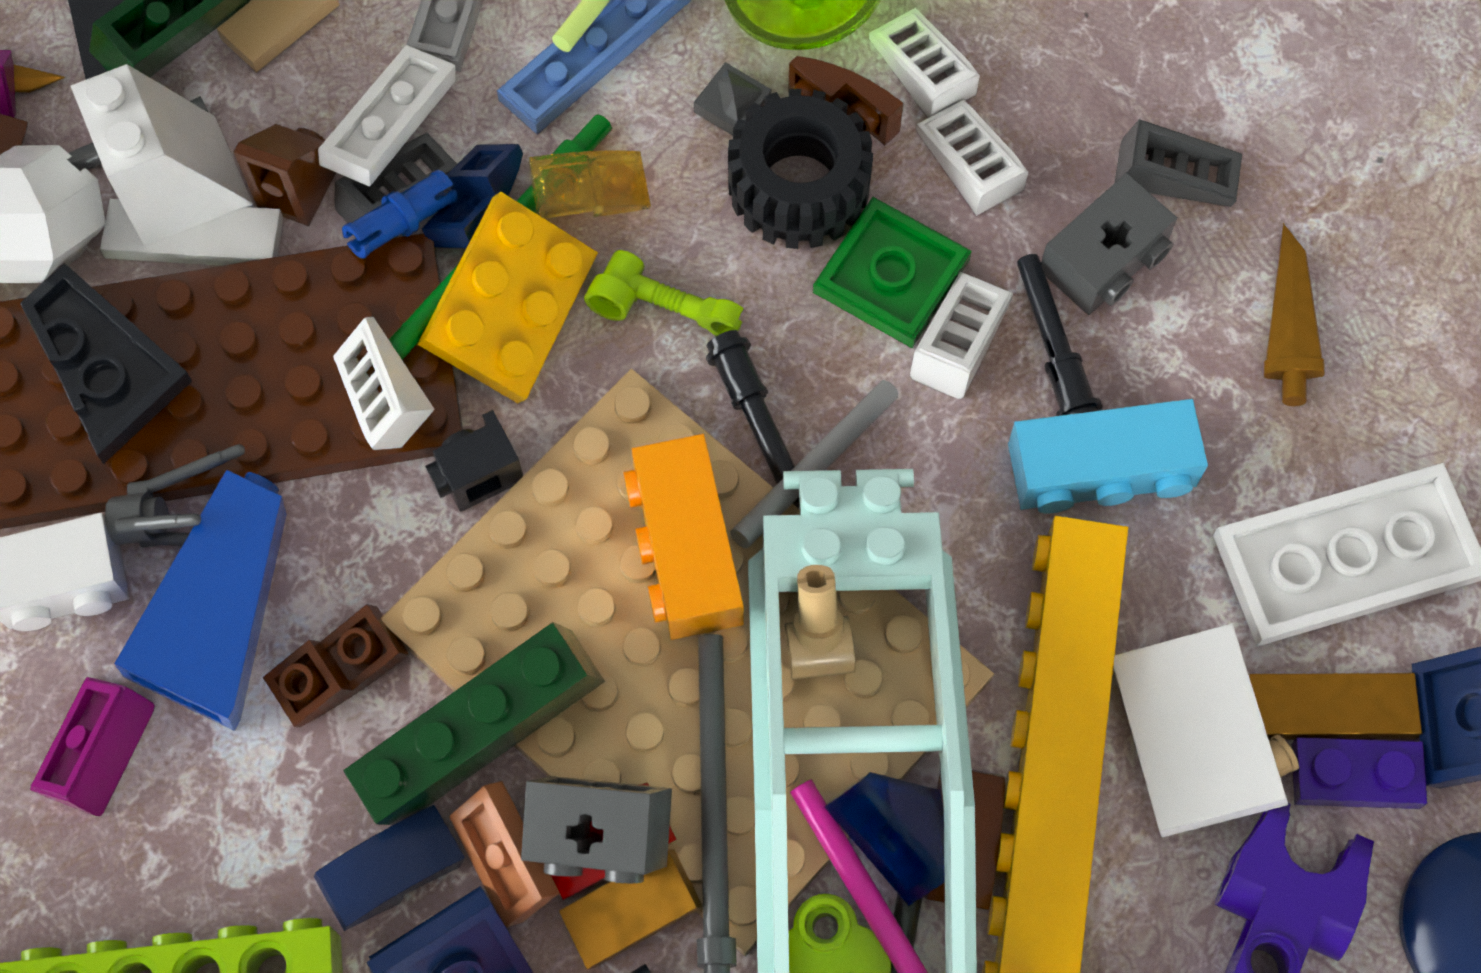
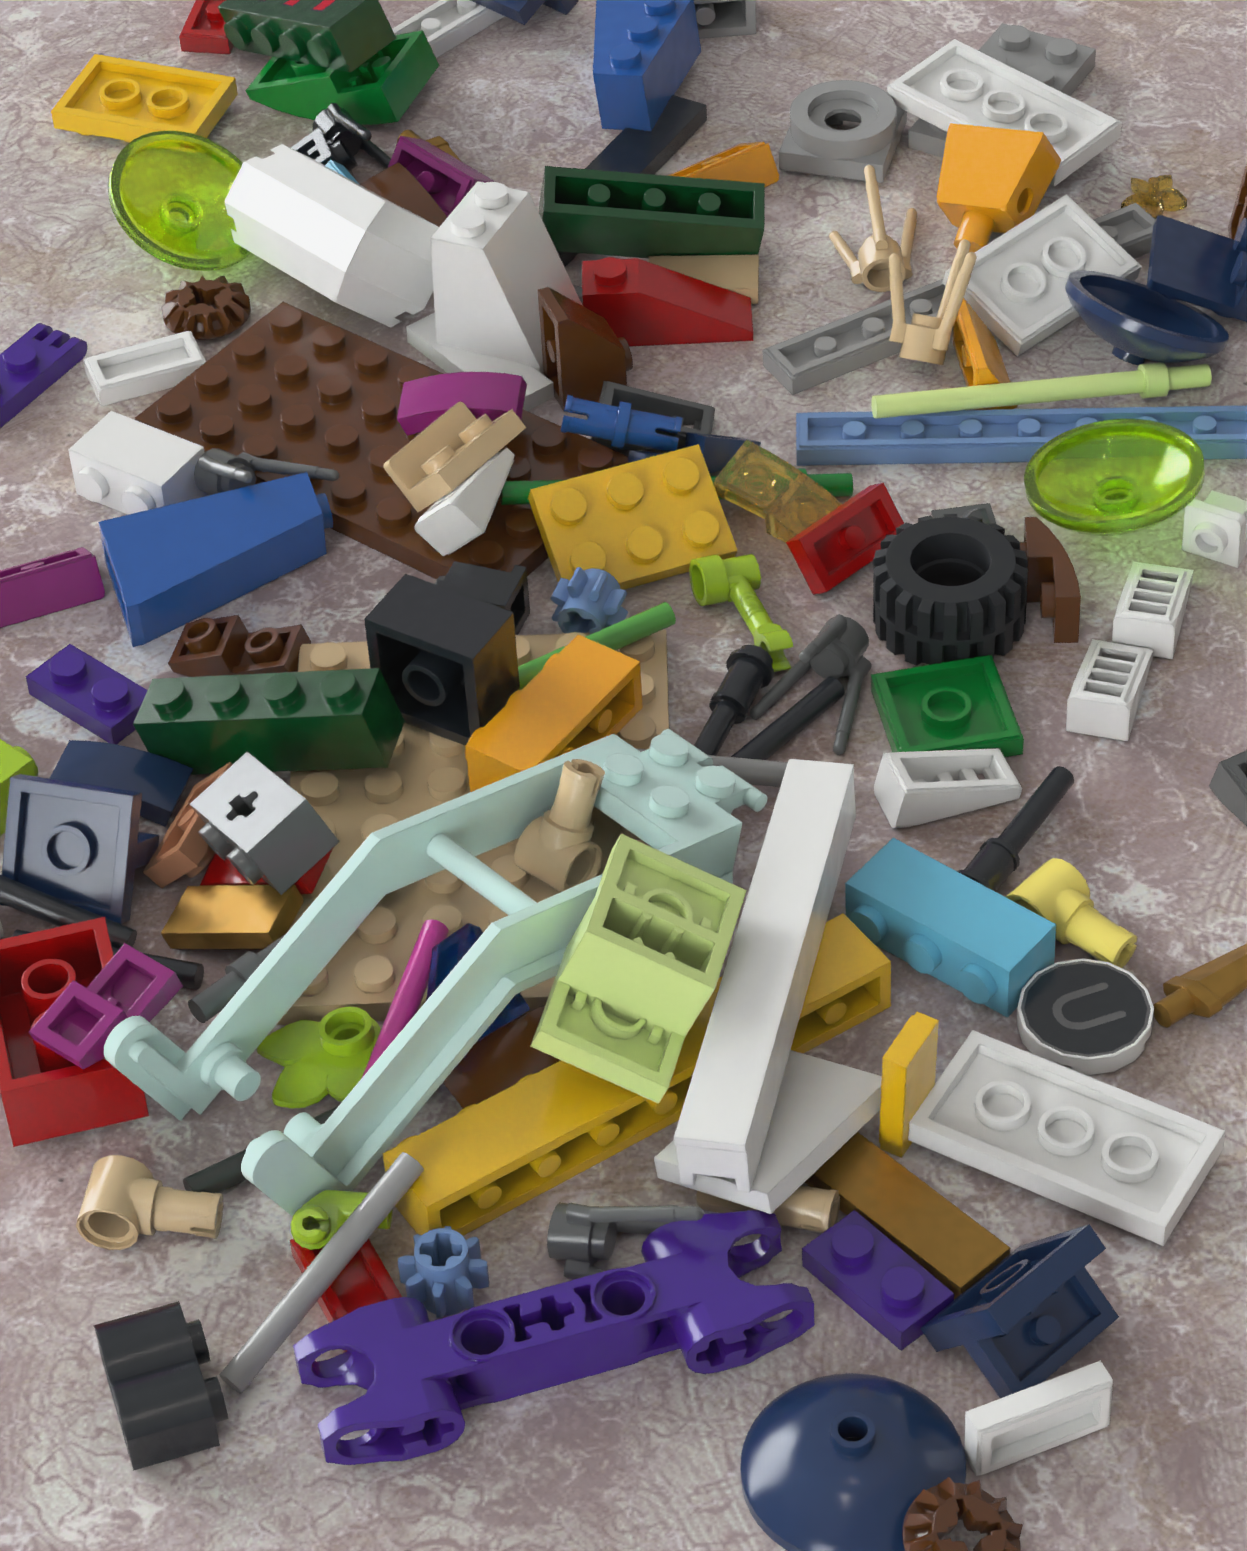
camera: 50 degrees right, 25 degrees down
(102, 359) = (316, 372): black wing -> none
(258, 290) = (482, 393): none -> magenta slope
(264, 807) = (88, 693): none -> dark purple plate
(283, 72) = (662, 305): none -> red slope
(322, 355) = (449, 453): none -> tan bracket
(387, 115) = (692, 368): white plate -> none
(559, 396) = (588, 601): none -> medium blue gear
(564, 558) = (443, 656): none -> black brick
(615, 441) = (613, 637): none -> bright green bar
(669, 178) = (845, 538): none -> red plate
(774, 288) = (835, 654): none -> dark grey plant
(801, 381) = (793, 721): none -> black bar
(1045, 712) = (639, 968): none -> yellowish green bracket
(1096, 622) = (767, 975): none -> white tile
(1109, 244) = (1138, 804): dark grey brick -> none
(1149, 376) = (1063, 897): none -> light yellow pin
(1163, 926) = (589, 1233): none -> dark grey plant
(1253, 444) = (1085, 1015): none -> black tile
(1255, 613) = (906, 1080): none -> yellow tile

